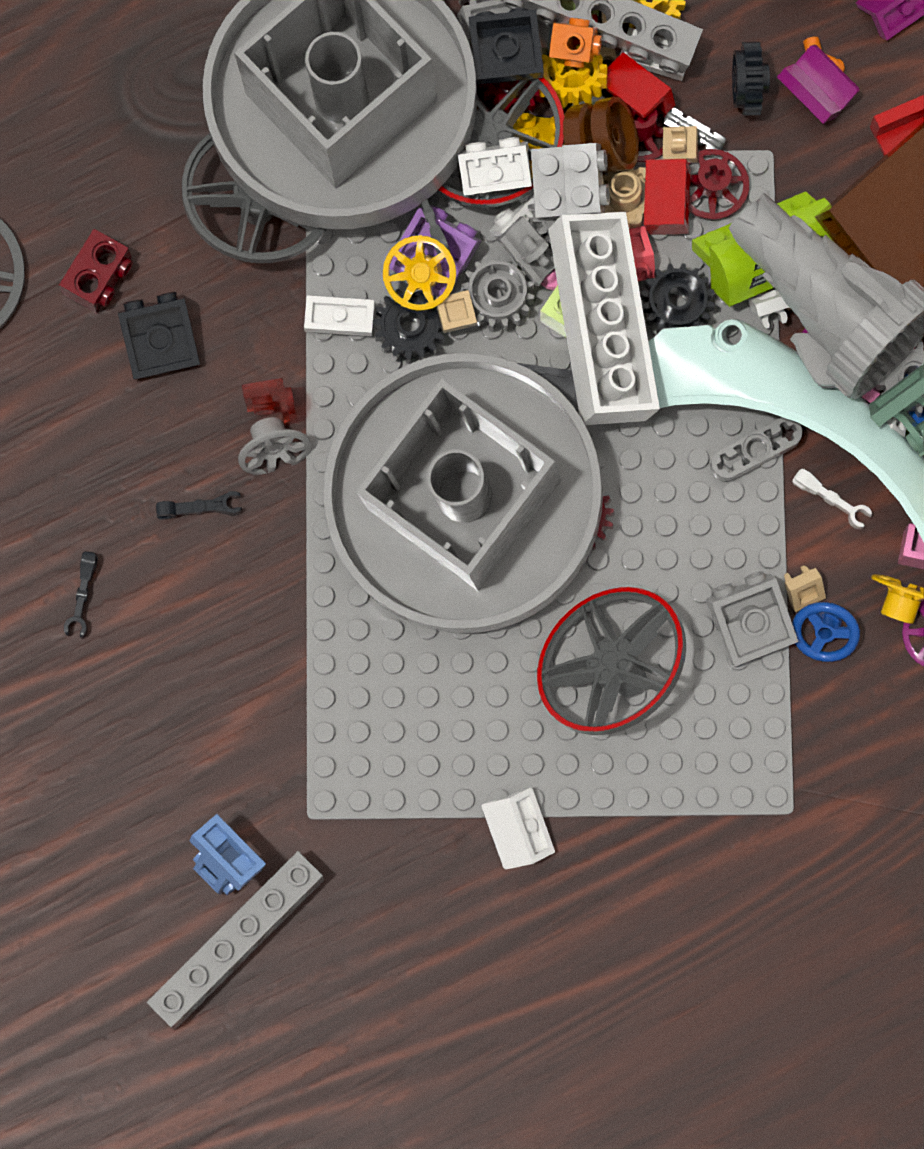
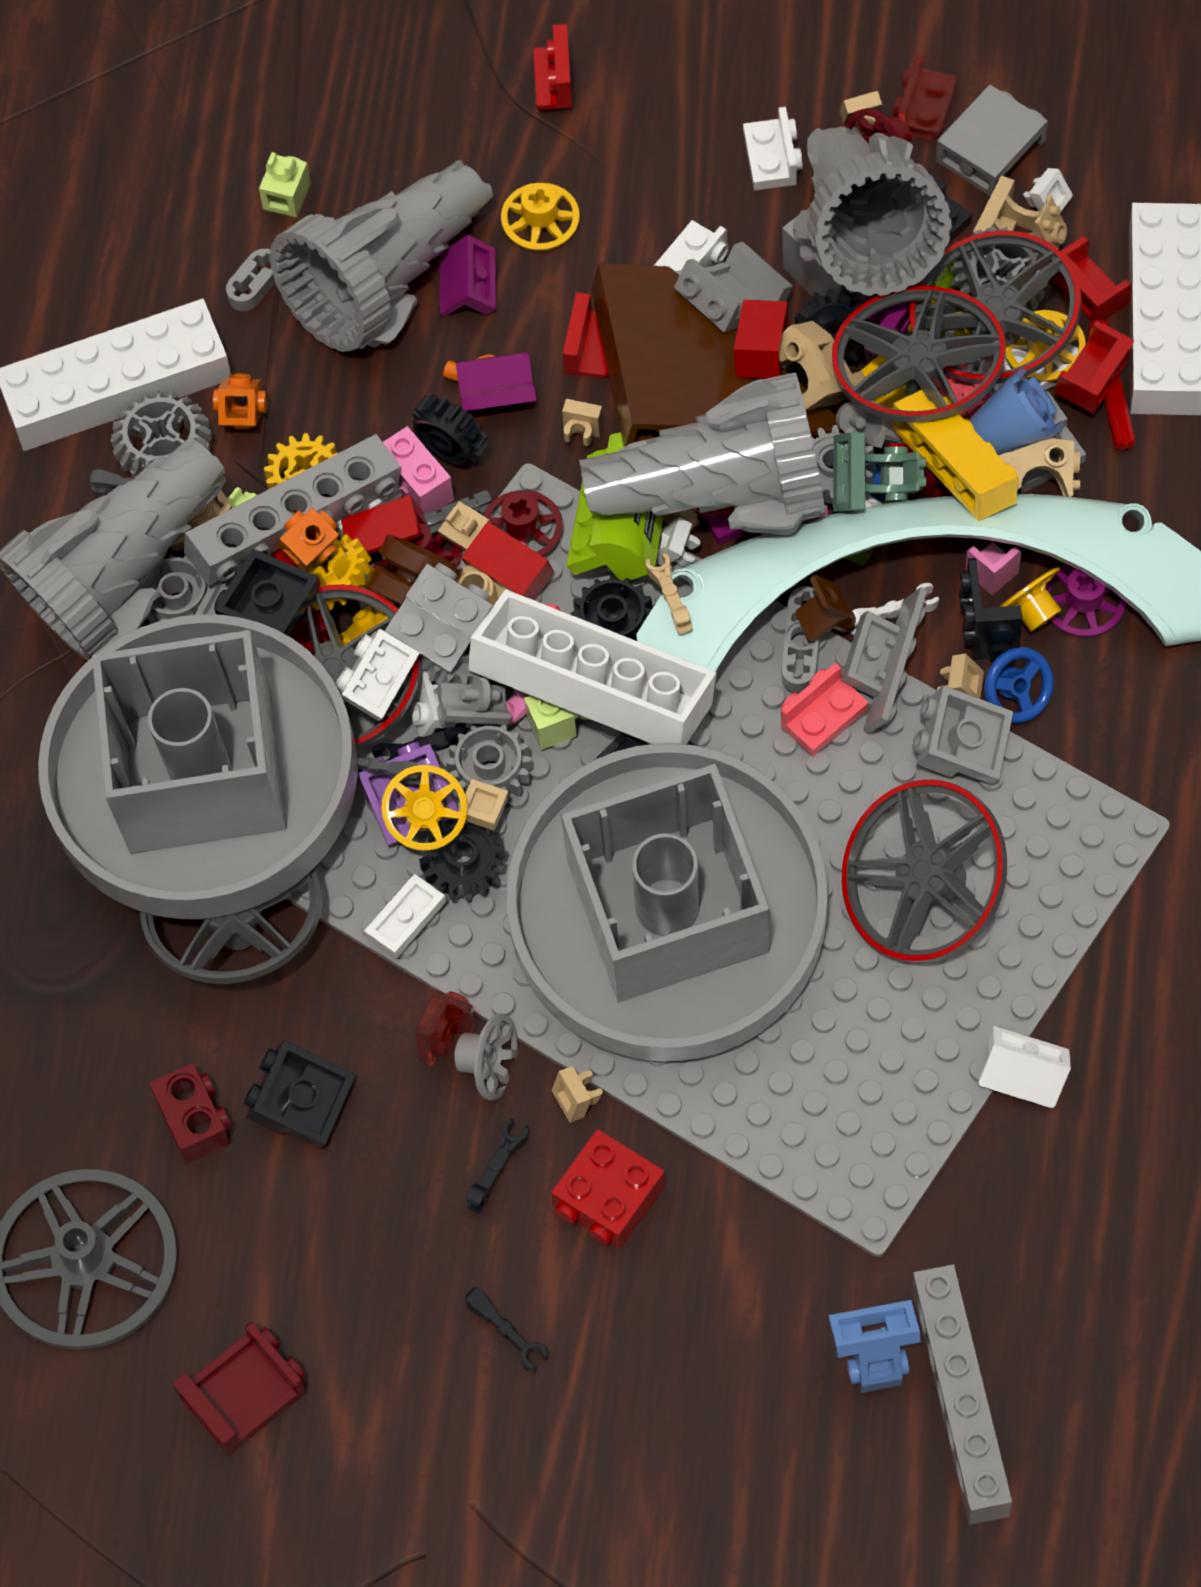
camera: 50 degrees left, 15 degrees down
(227, 597) = (607, 1190): none -> red brick
(285, 523) = (573, 1095): none -> tan tile
(482, 234) = (436, 740): none -> black piece
(703, 78) = (420, 472): none -> bright pink brick
(706, 502) = (821, 710): none -> coral bracket
(725, 316) = (663, 577): none -> tan piece
(777, 515) = (879, 657): none -> light grey bracket
(783, 452) = (825, 610): none -> reddish brown bracket
(833, 166) = (582, 419): none -> tan tile
(853, 586) = (986, 629): none -> black bracket

